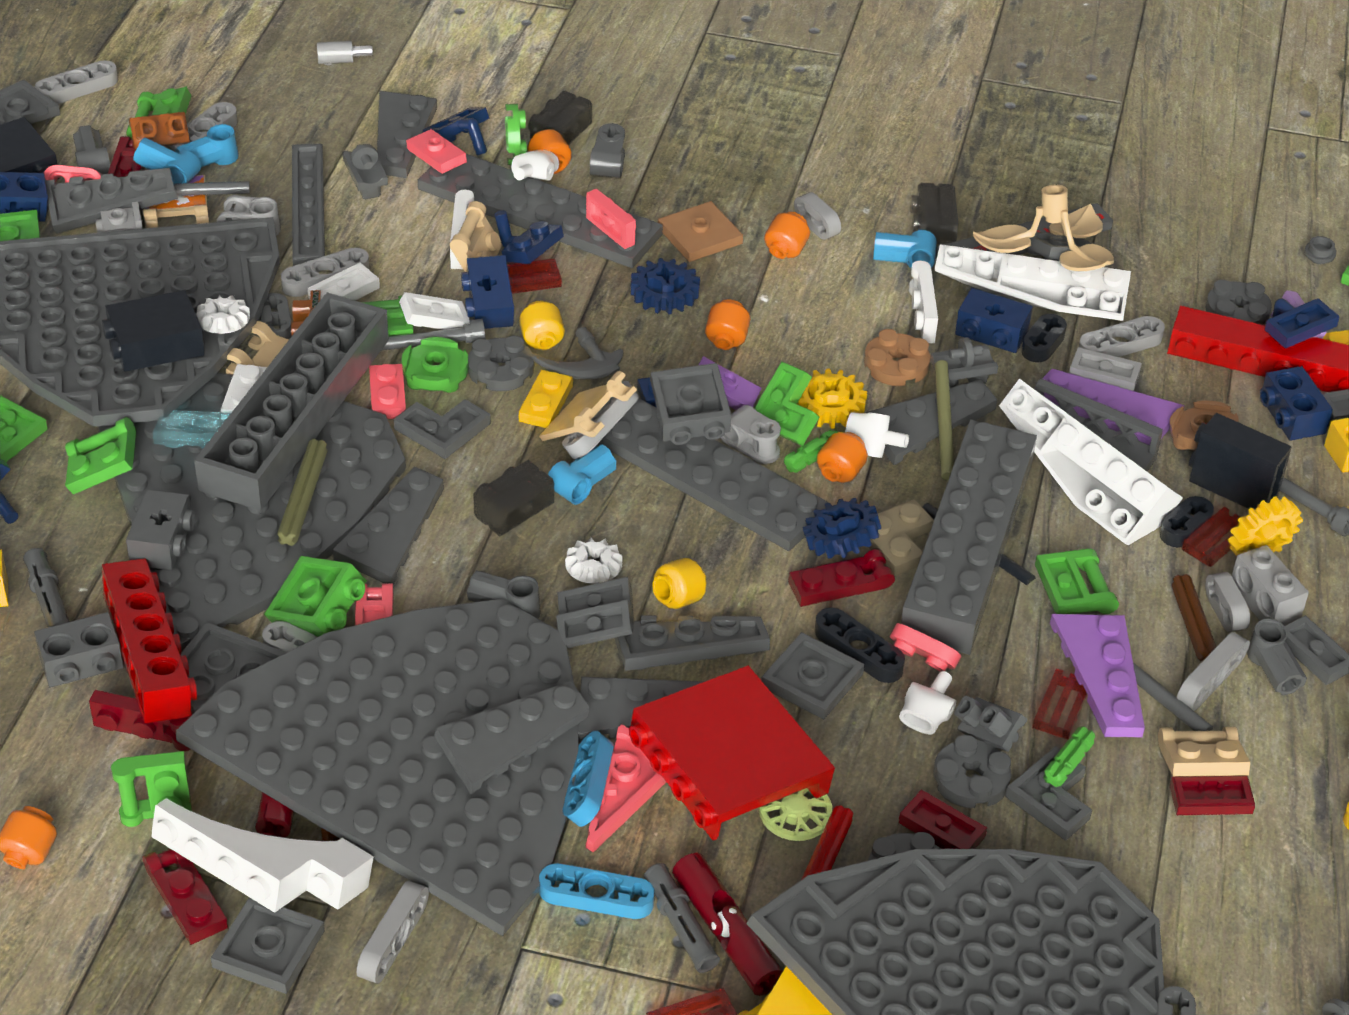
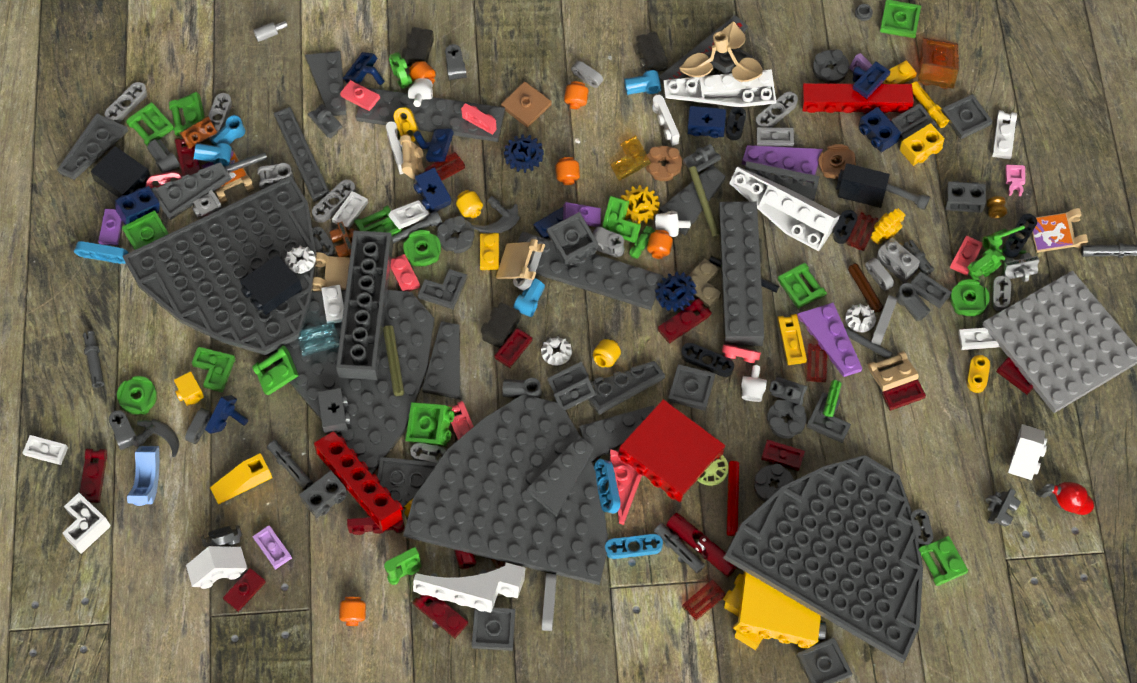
camera: 15 degrees left, 20 degrees up
(104, 107) = (154, 120): none -> bright green plate
(493, 202) = (405, 124): none -> yellow plate
(520, 535) = (513, 347): none -> dark red plate
(849, 336) = (633, 161): none -> clear yellow plate
(1027, 656) = (792, 339): none -> yellow plate
(1154, 659) = (854, 322): none -> white gear
(1314, 607) = (924, 265): none -> dark grey pin

